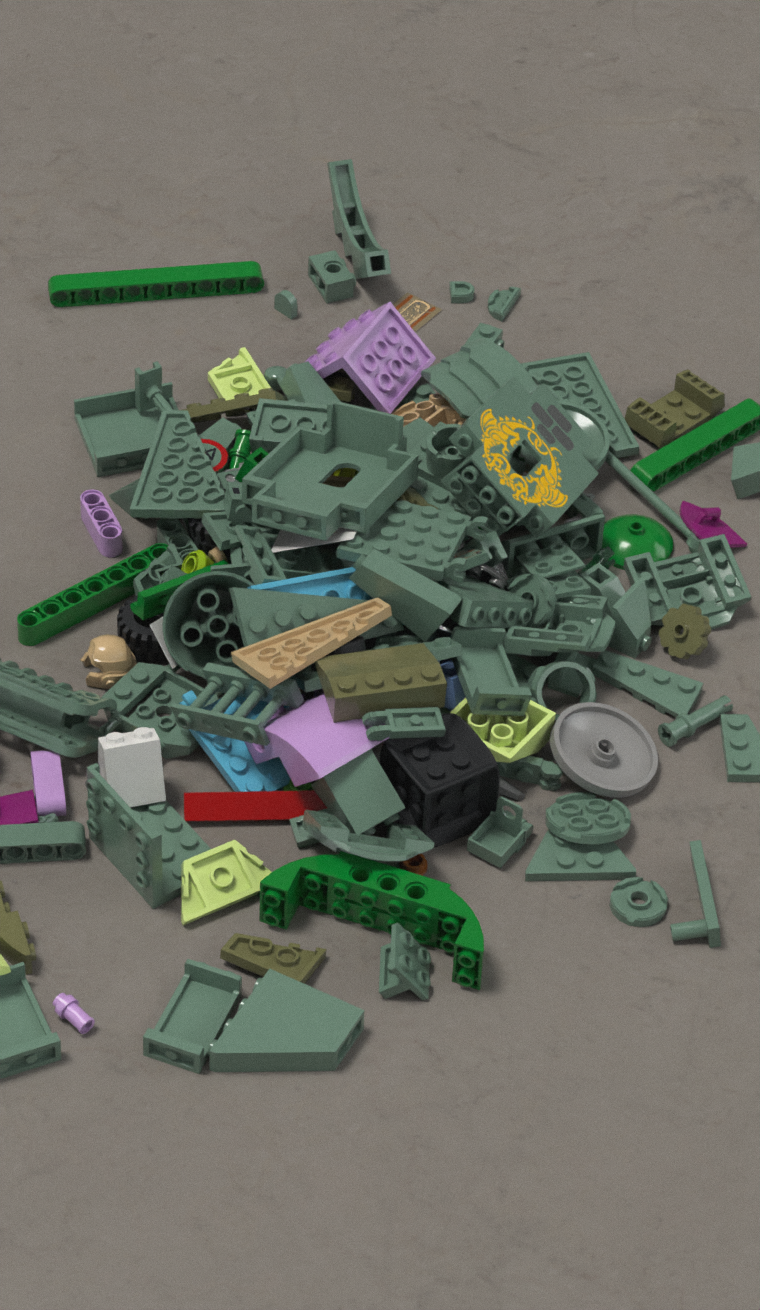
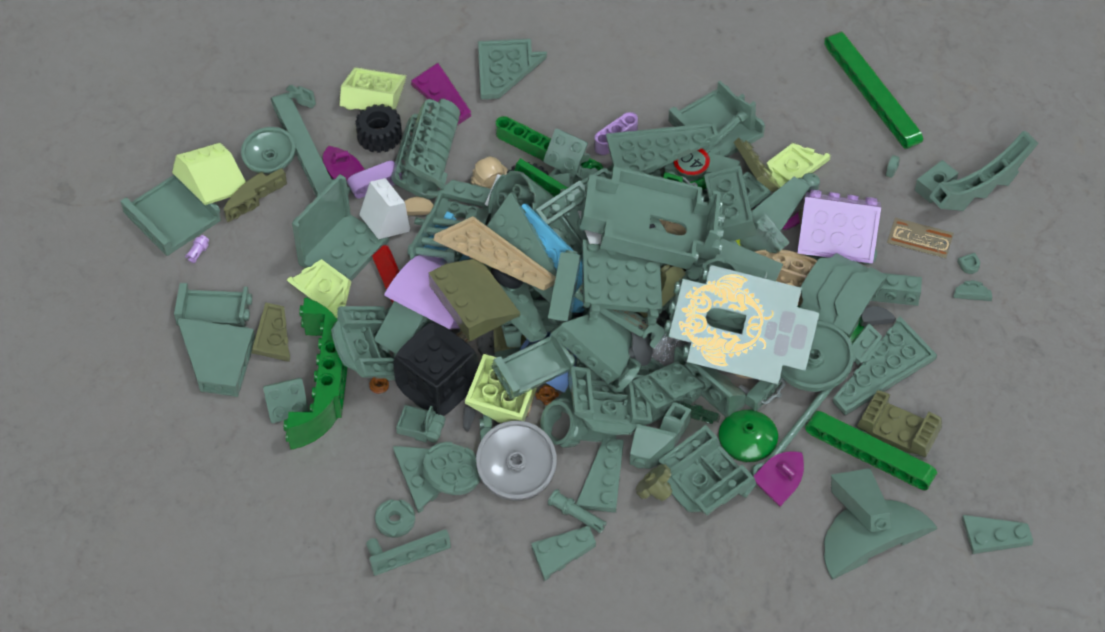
camera: 75 degrees right, 10 degrees up
(133, 559) = (566, 152): none -> sand green bracket
(404, 723) = (443, 325): sand green hinge -> none

